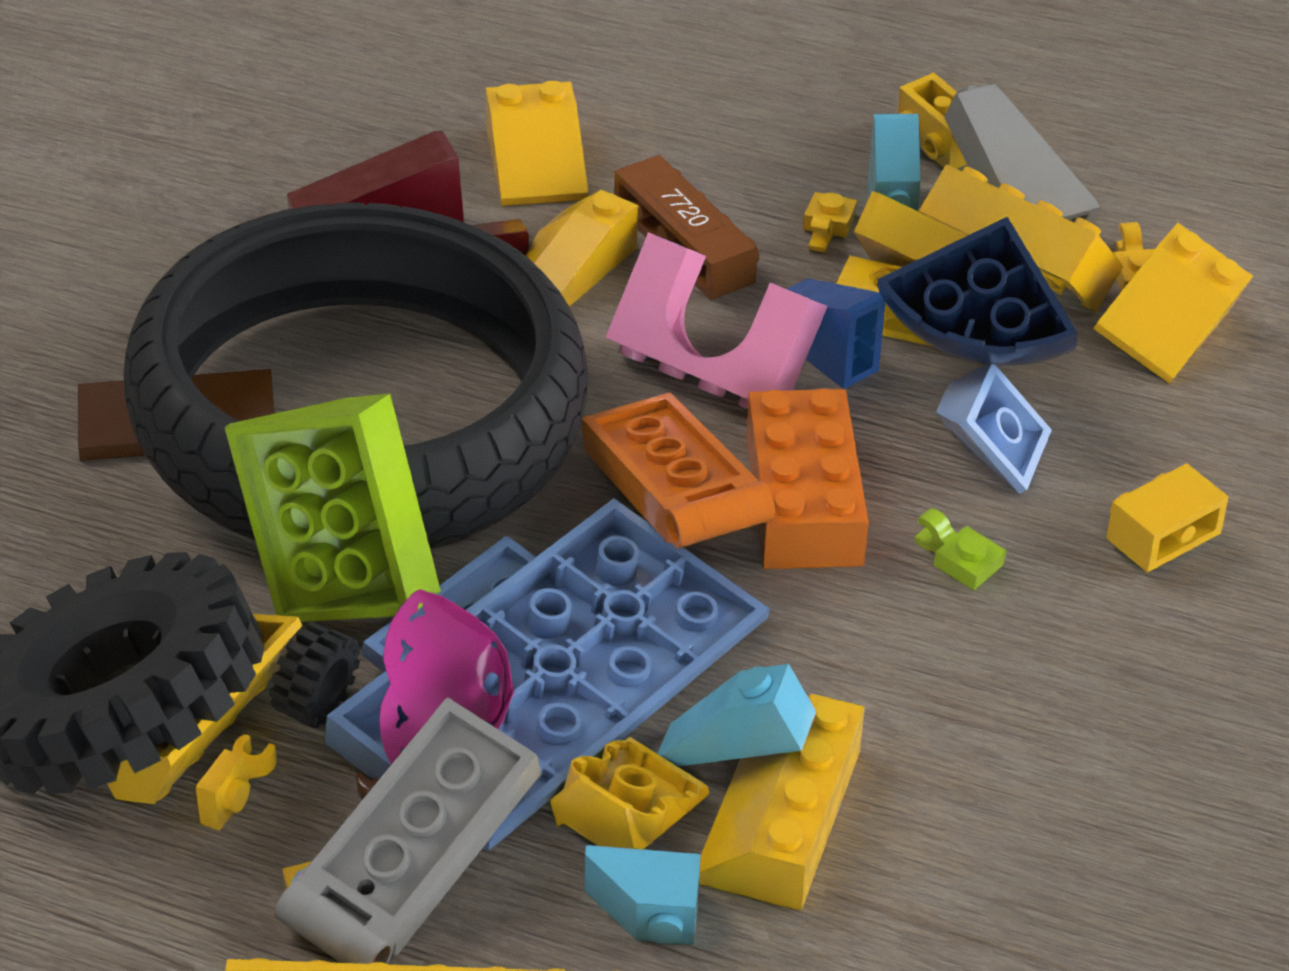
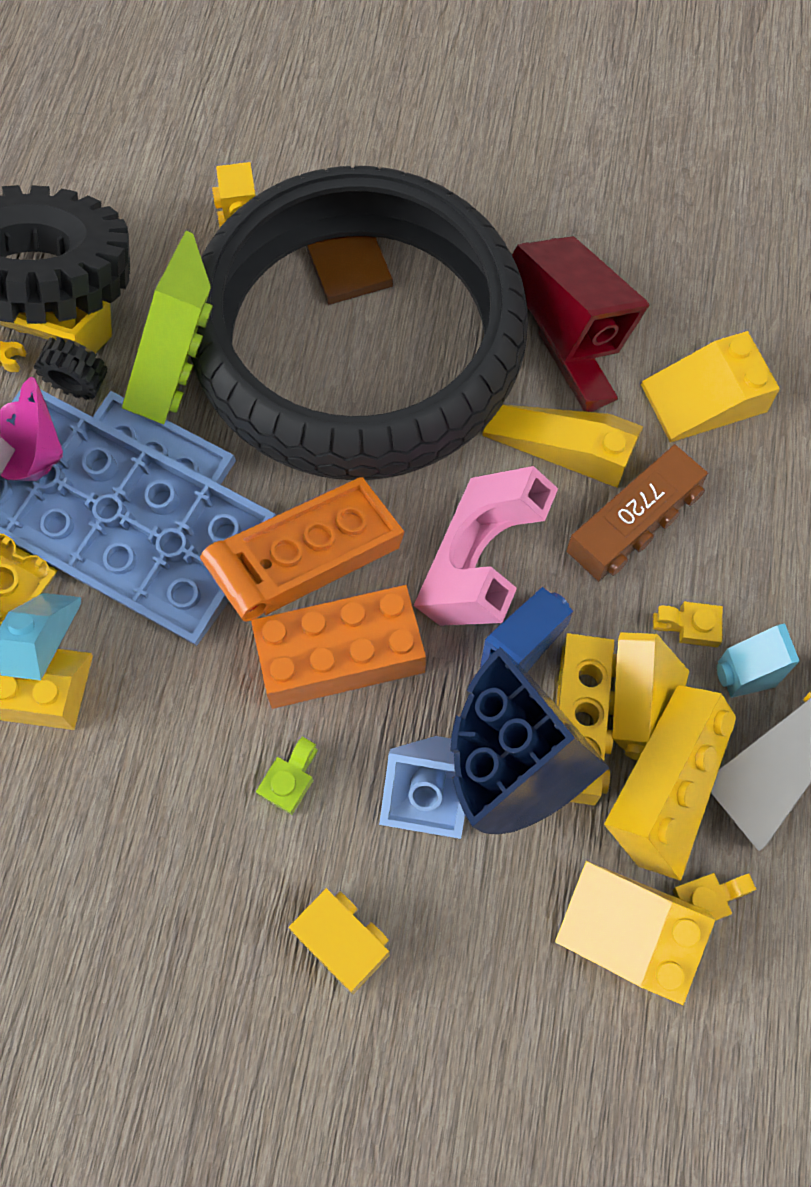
camera: 80 degrees right, 25 degrees up
(98, 473) = (233, 189): none -> yellow brick

